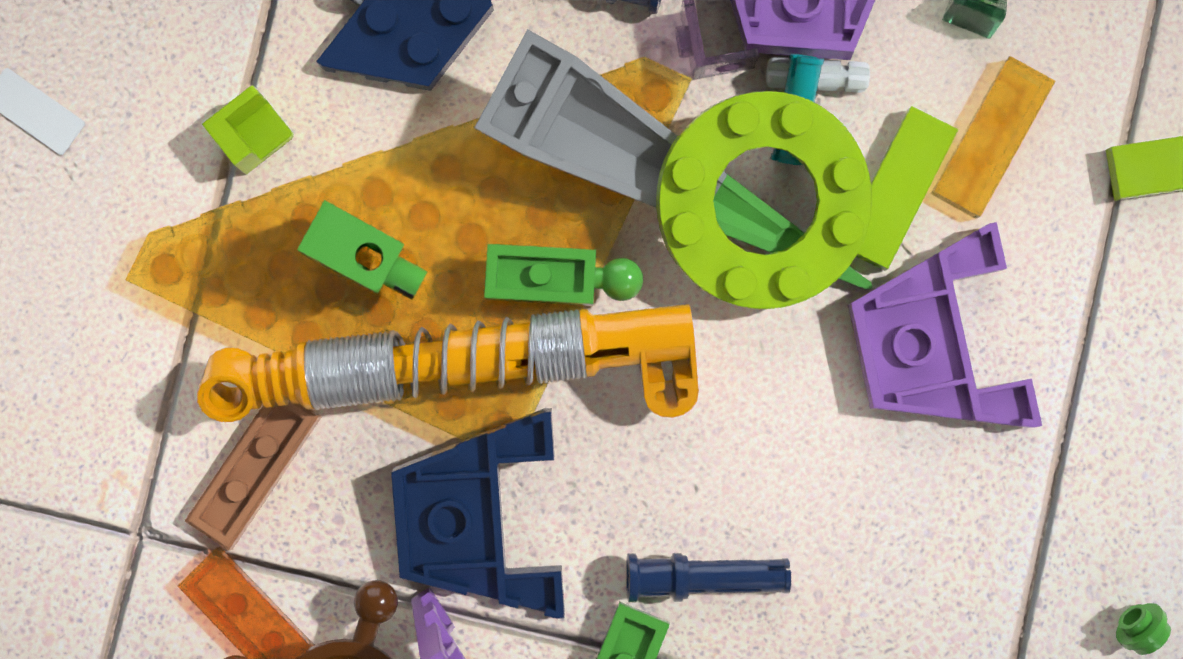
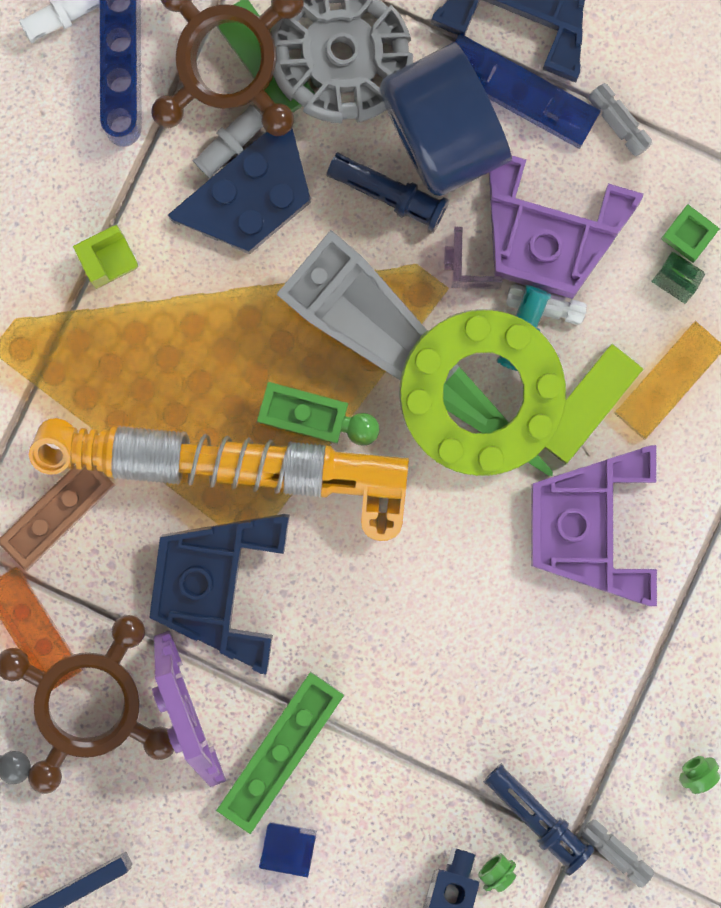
camera: 10 degrees right, 0 degrees up
(338, 237) = (155, 357): bright green torso -> none
(682, 577) = (360, 662): dark blue pin -> none

